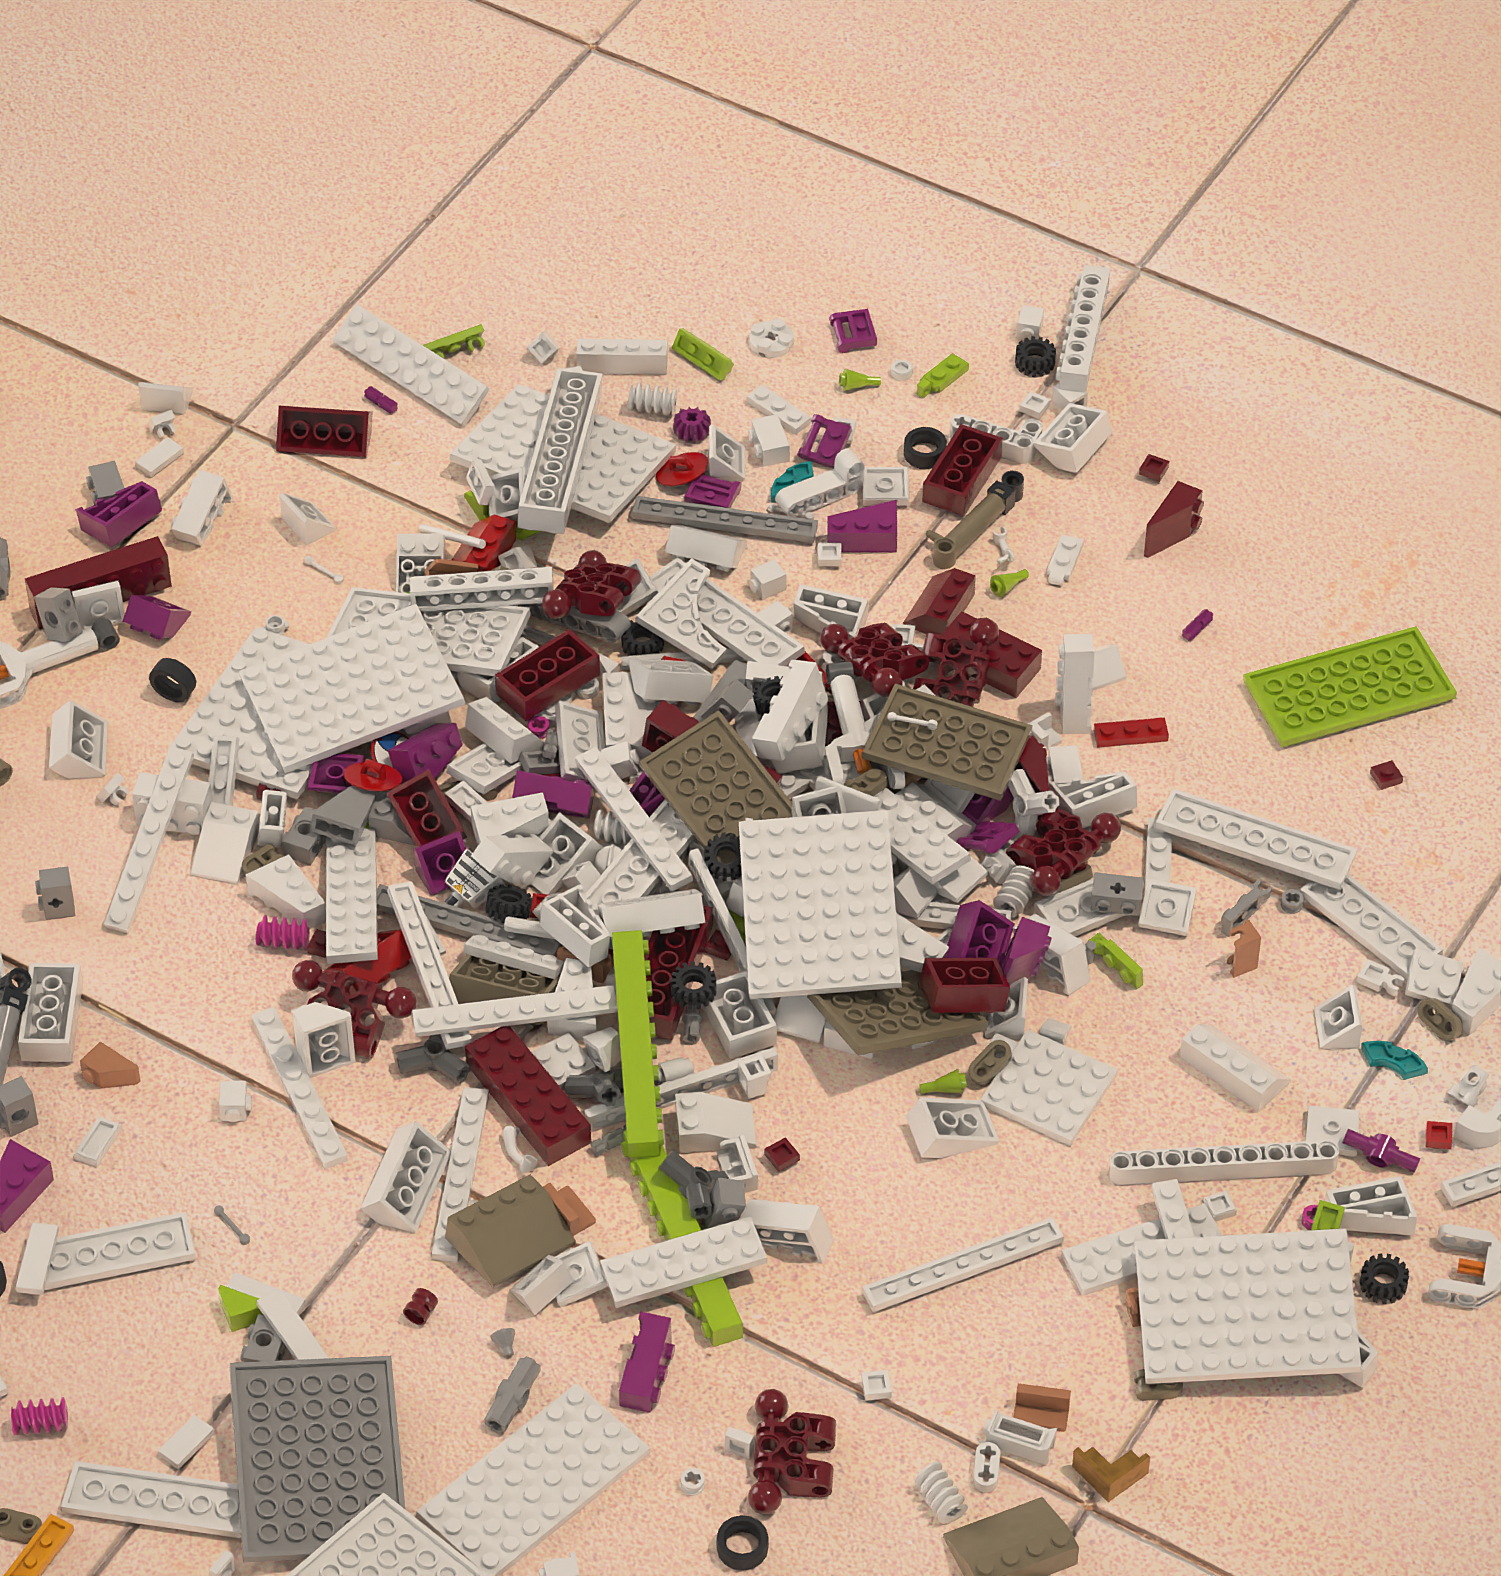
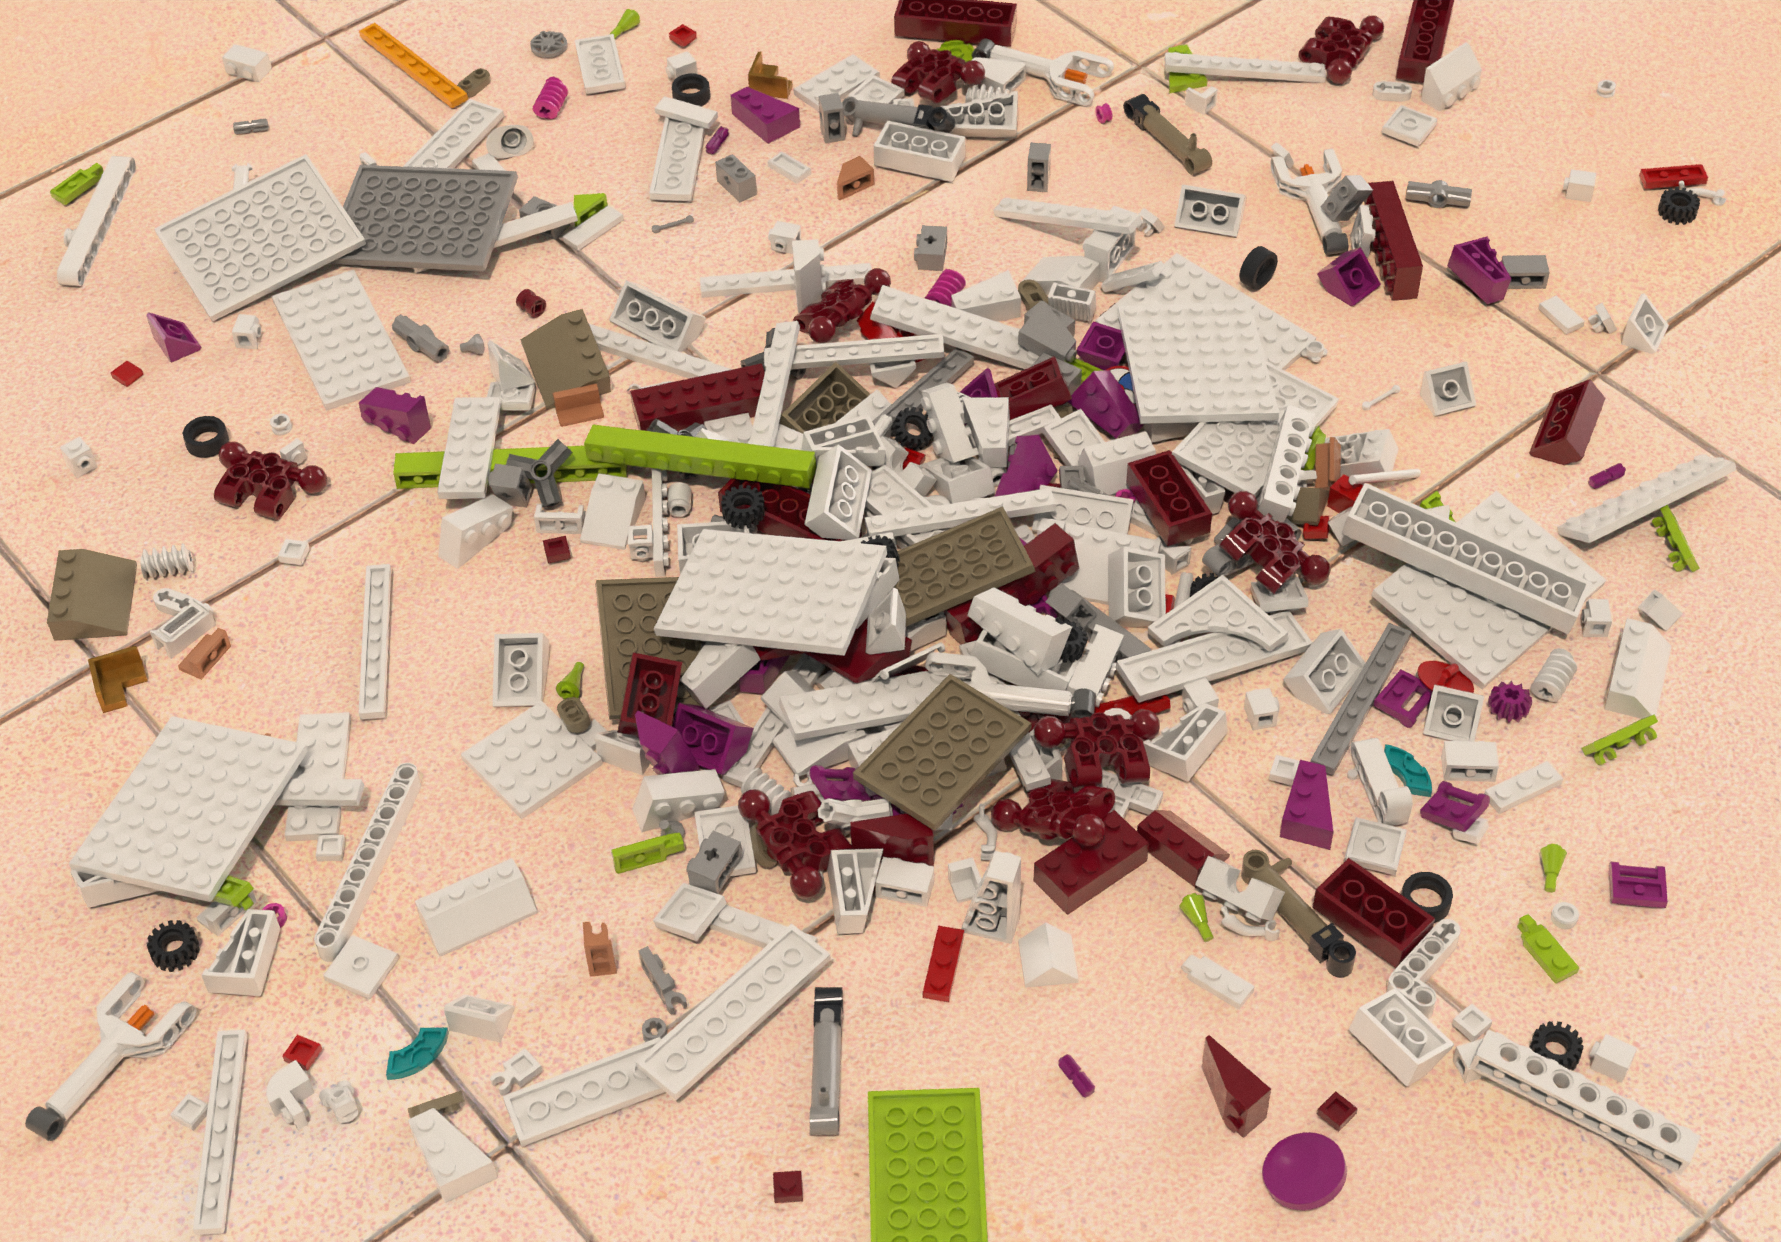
camera: 110 degrees right, 0 degrees up
(74, 1225) = (717, 140): none -> magenta piece
(131, 1430) = (509, 141): none -> white piece
(143, 1176) = (736, 178): none -> light grey brick
(200, 508) = (1477, 321): white wedge -> none
(212, 964) = (931, 248): none -> light grey brick
(372, 776) = (1083, 355): red shield -> none
(480, 482) = (1441, 496): white plate -> none
(762, 332) = (1643, 796): white plate -> none
(870, 782) = (922, 691): dark tan plate -> none
(931, 724) = (984, 705): white hinge -> none
(988, 536) = (1257, 899): none -> white arch
(1055, 1030) = (591, 781): white slope -> none
(1220, 471) = (1304, 1171): none -> magenta piece
(1230, 784) = (826, 1061): none -> light grey piece
(1381, 1150) = (309, 992): magenta pin -> none
(1433, 977) = (488, 1117): white plate -> none

